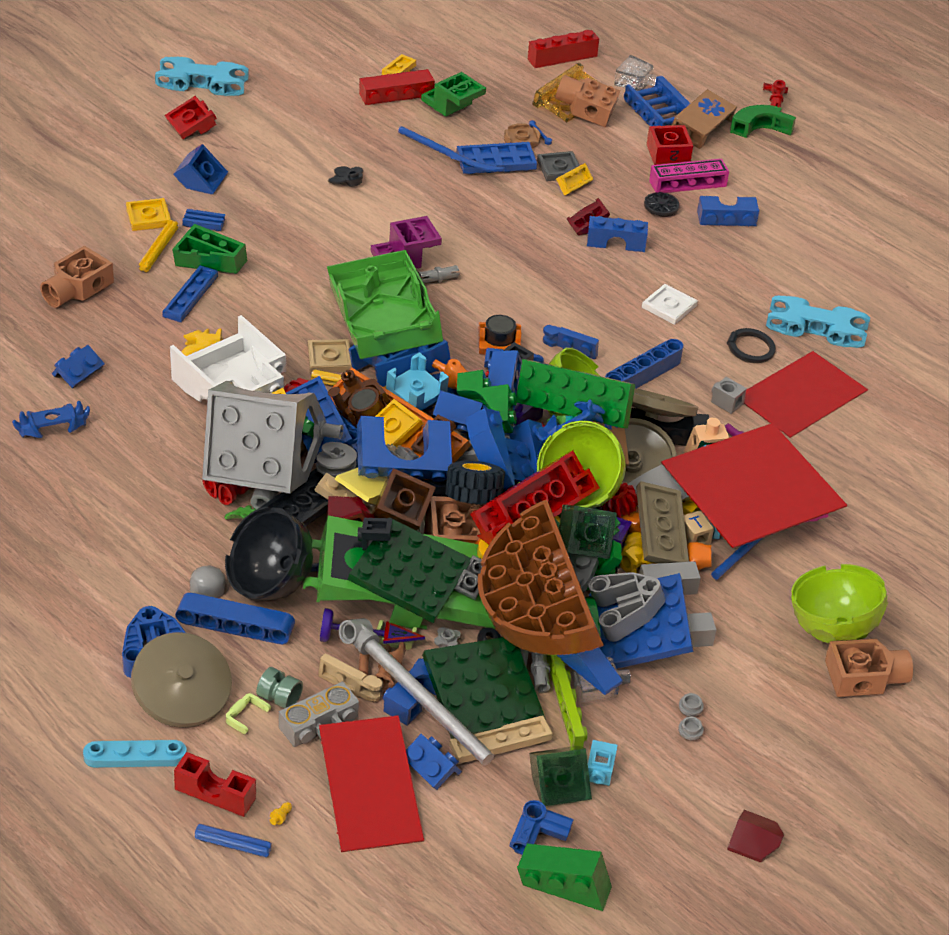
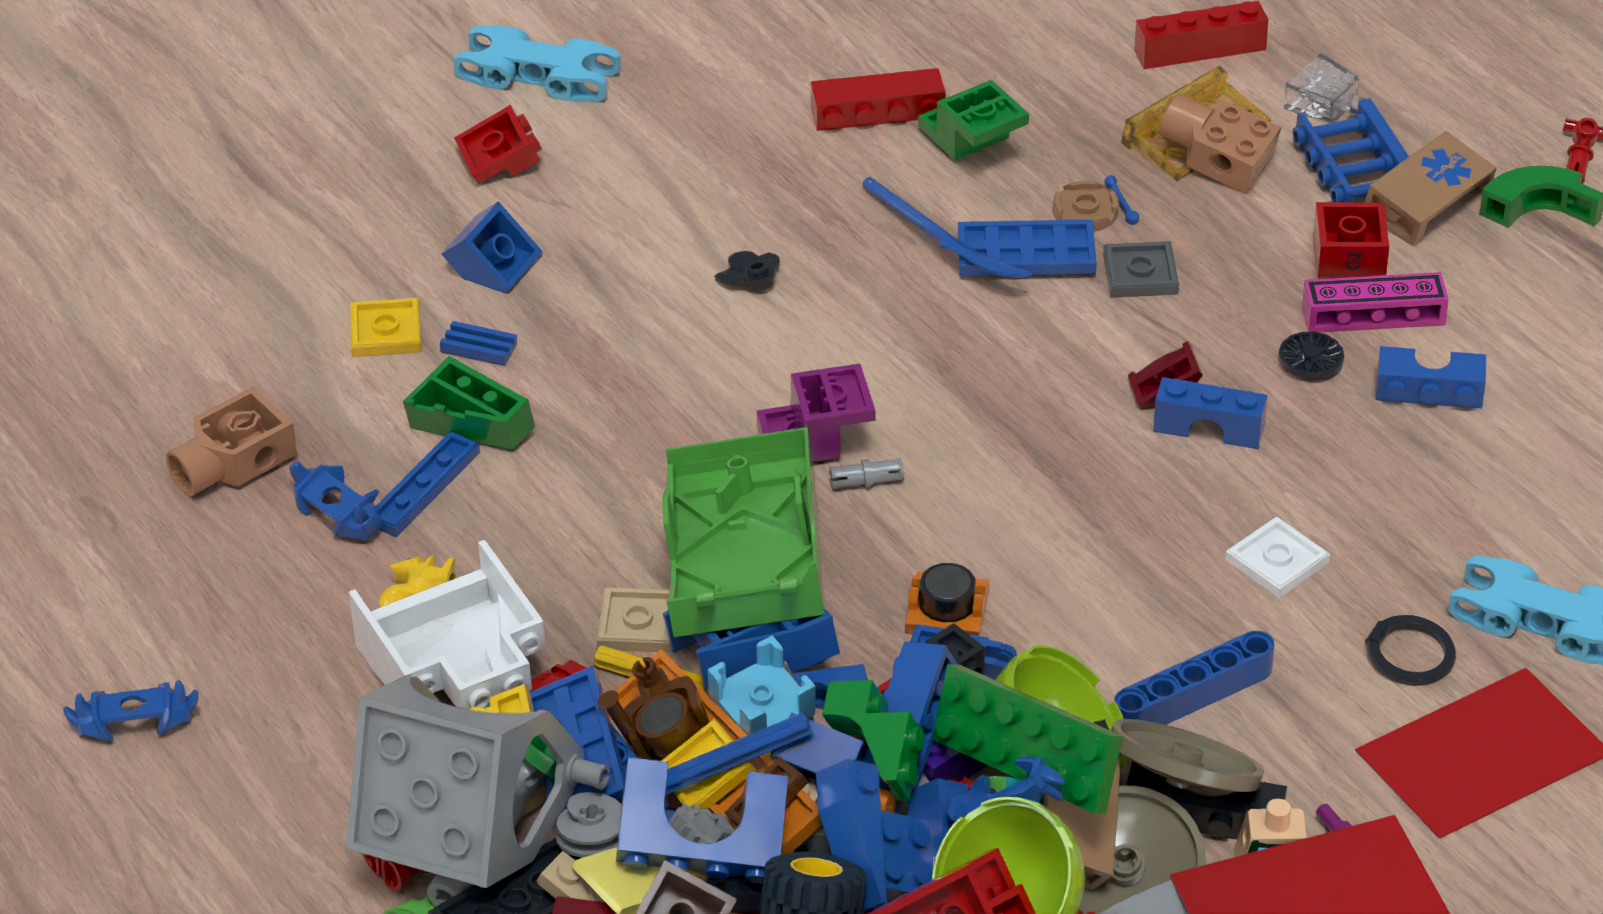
camera: 15 degrees right, 0 degrees up
(78, 366) = (200, 611): blue bracket -> none
(156, 309) = (353, 515): none -> blue piece
(158, 246) = (388, 389): yellow axle -> none
(399, 65) = (893, 57): yellow plate -> none
(416, 412) = (737, 752): none -> blue axle
(451, 369) = (830, 667): orange piece -> none
(570, 339) = (1073, 620): blue hinge -> none
(574, 179) = (1159, 298): yellow plate -> none
(728, 395) = (1339, 747): light grey brick -> none

